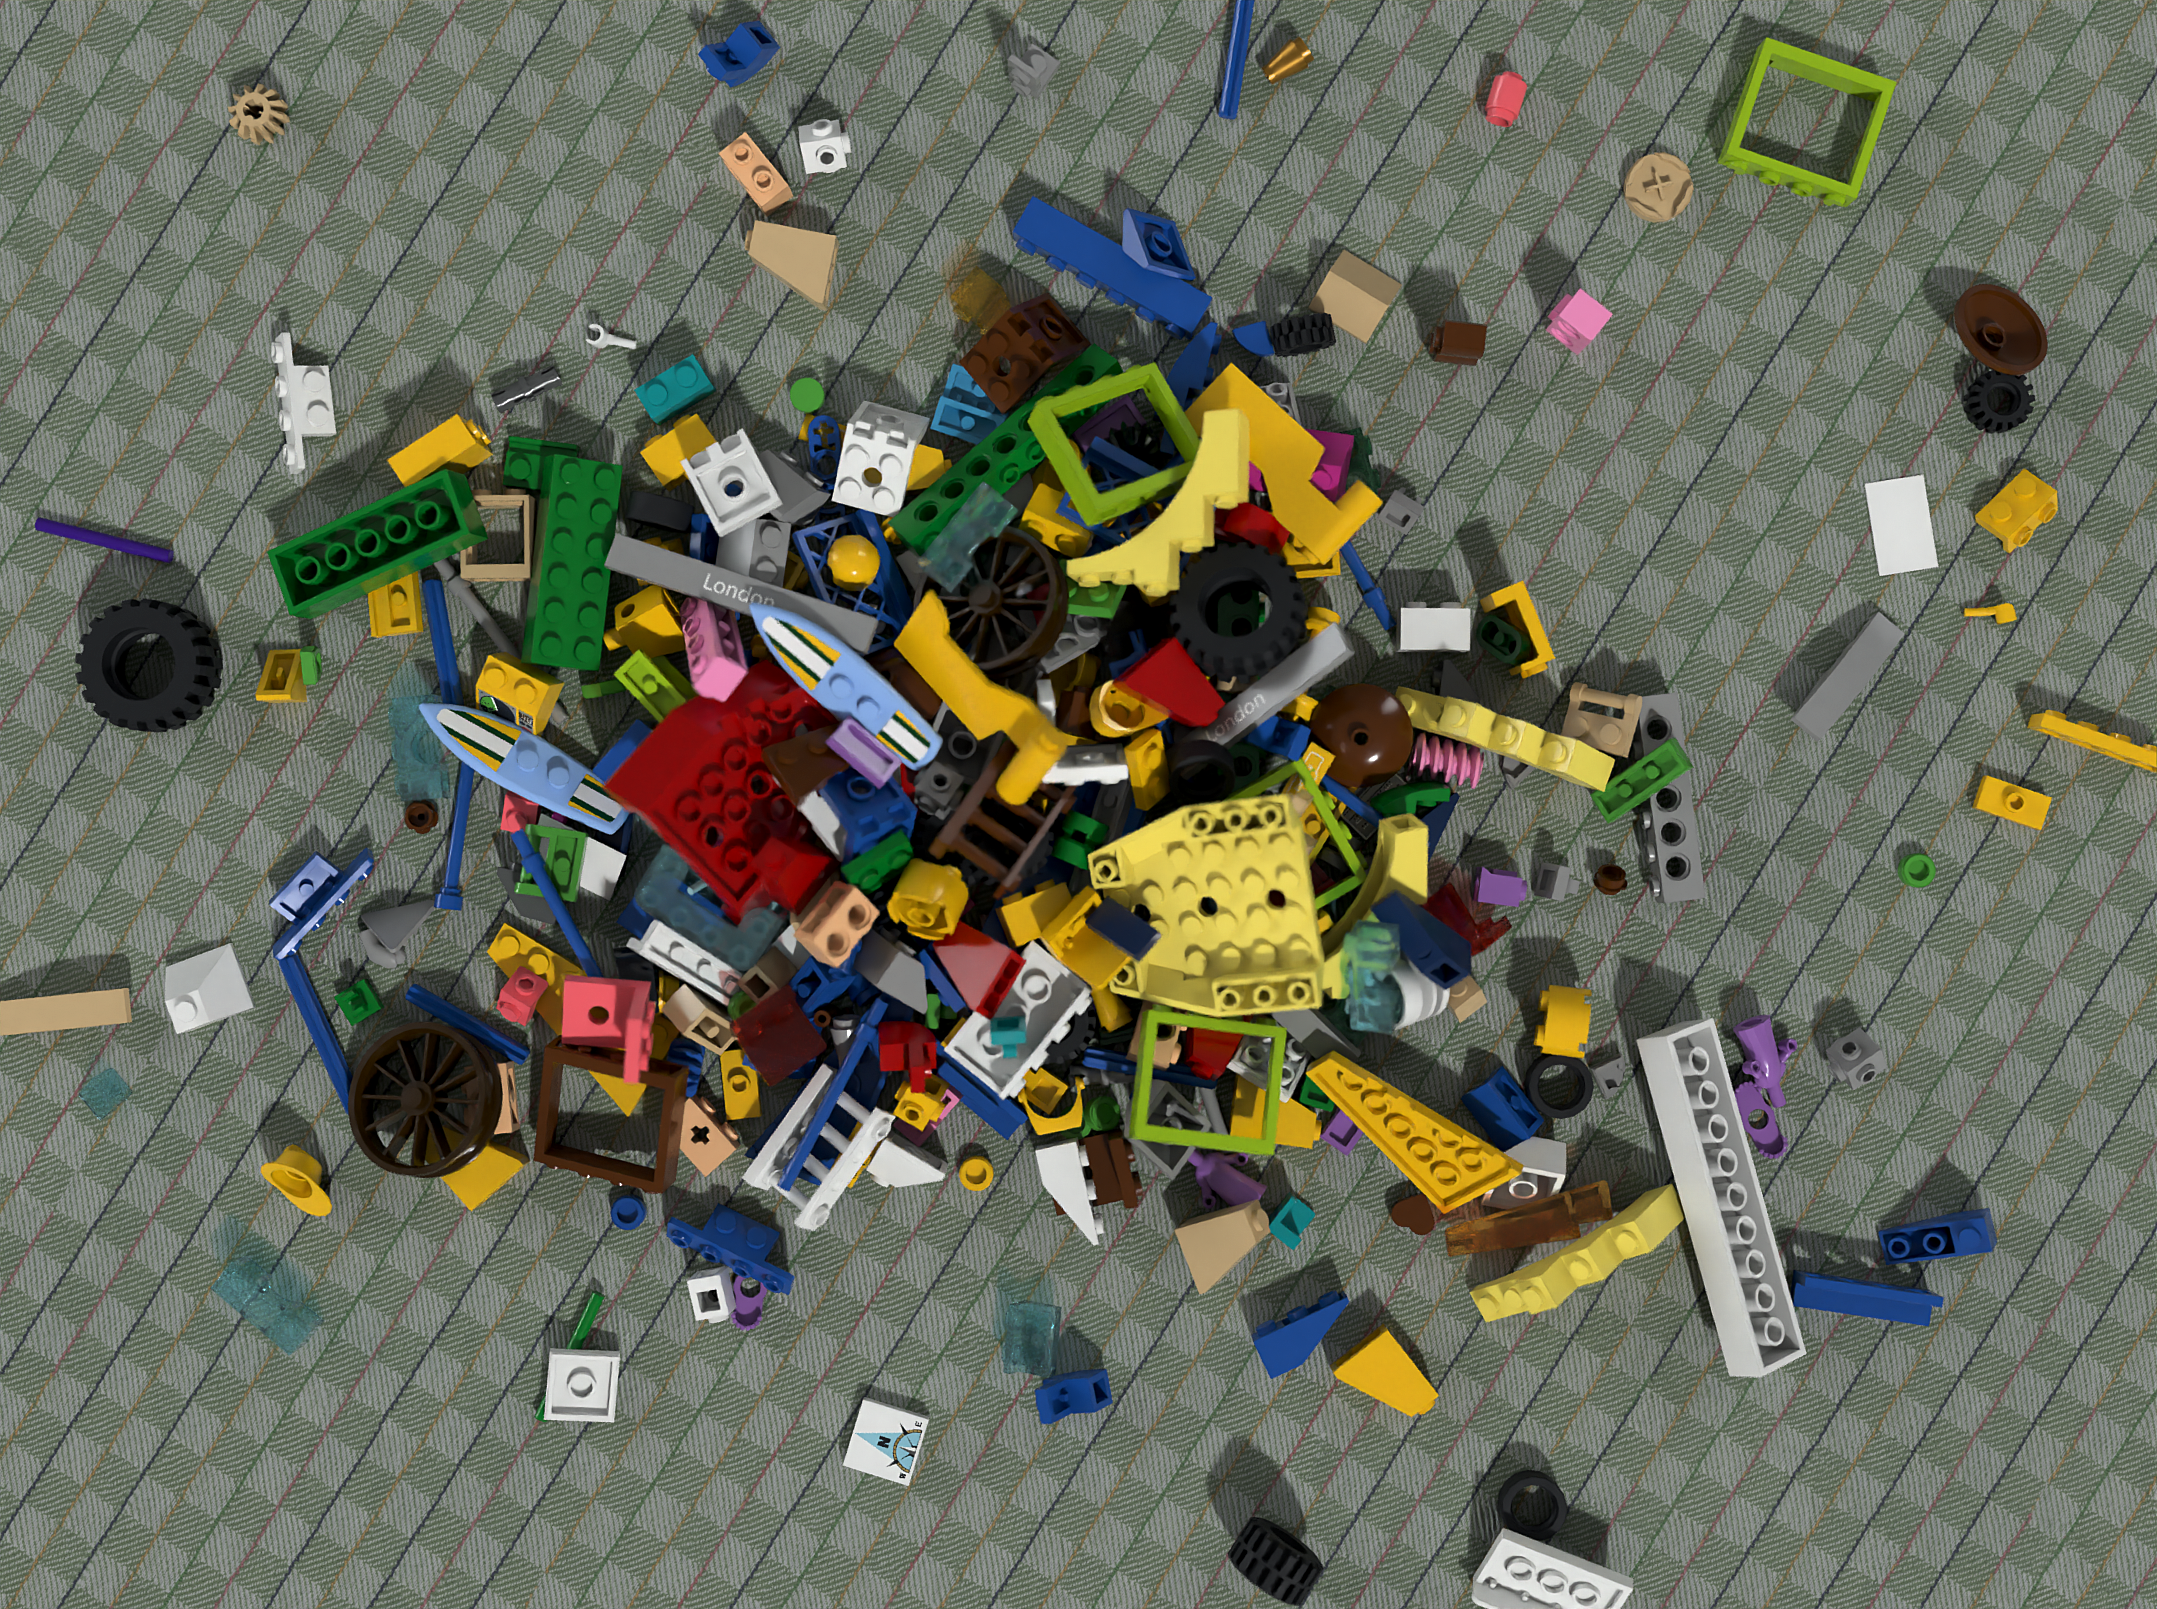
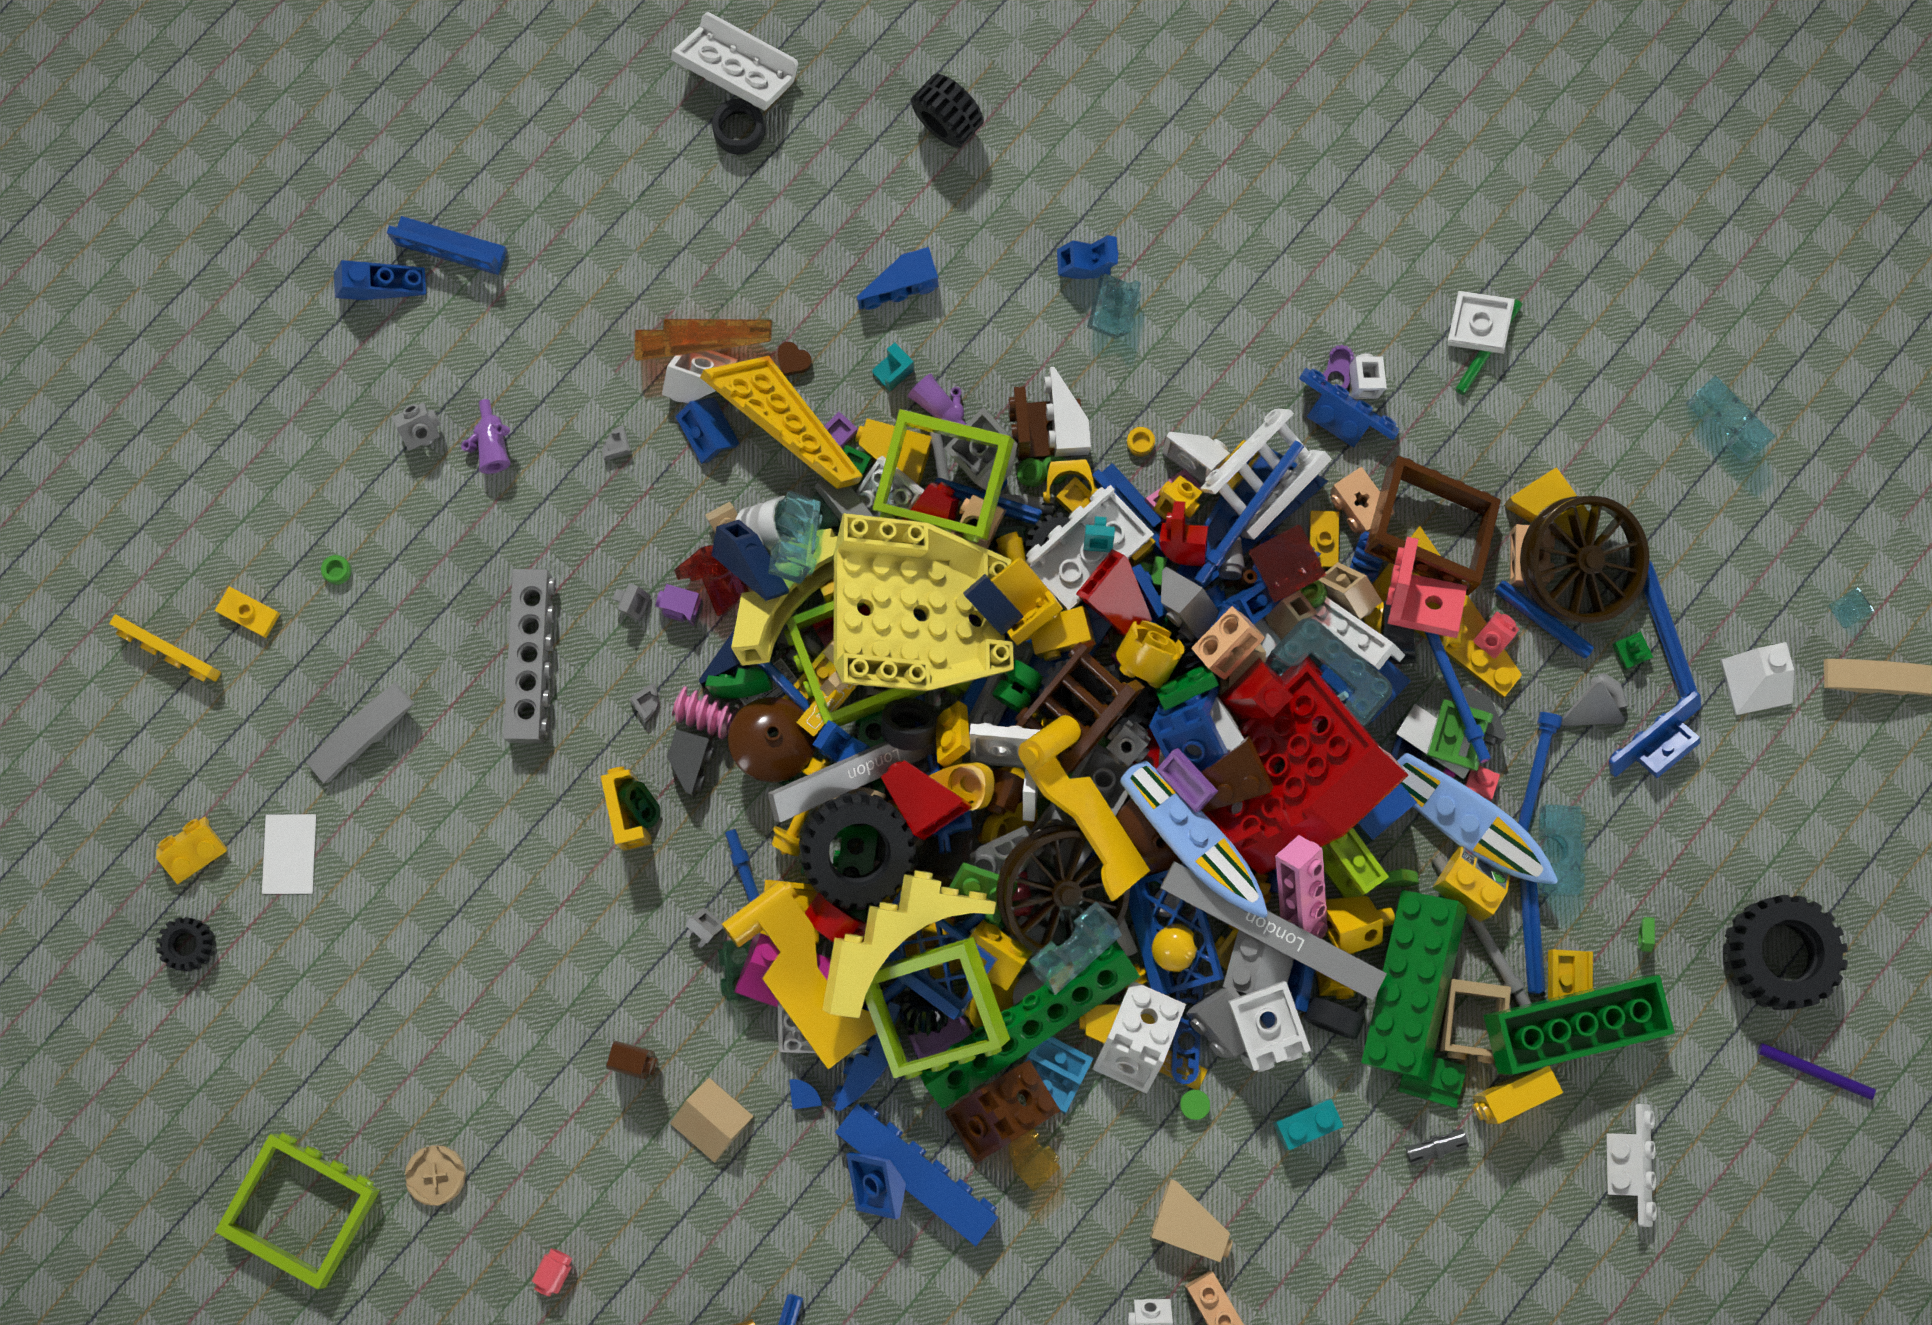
camera: 170 degrees left, 10 degrees down
(282, 678) = (1672, 927): yellow slope -> none
(299, 1180) = (1695, 514): yellow piece -> none
(412, 816) = (1568, 787): reddish brown plate -> none
(606, 338) = (1361, 1181): white hand -> none
(628, 1212) = (1428, 451): blue tile -> none
(683, 442) = (1309, 1071): yellow brick -> none
(886, 1441) = (1241, 246): white tile -> none
(1221, 1240) = (951, 358): tan slope -> none
(1303, 335) = (762, 1088): black tyre -> none
(1386, 1373) = (836, 240): yellow slope -> none
(1433, 629) = (695, 822): white brick -> none
(1508, 737) = (654, 719): light yellow arch -> none
(1559, 1111) = (643, 427): black tyre -> none
(1564, 1020) = (645, 488): yellow brick -> none
(1577, 320) = (527, 1063): bright pink brick -> none
(1585, 1261) = (662, 297): light yellow arch -> none
(1600, 731) = (575, 718): tan plate -> none
(1610, 879) = (586, 597): reddish brown plate -> none
(1642, 780) = (546, 670): bright green tile -> none
(1721, 1198) = (546, 335): white brick -> none
(1768, 1138) = (498, 377): medium lavender piece -> none
(2000, 329) = (172, 1002): reddish brown dish -> none
(2003, 613) = (221, 768): yellow hand -> none

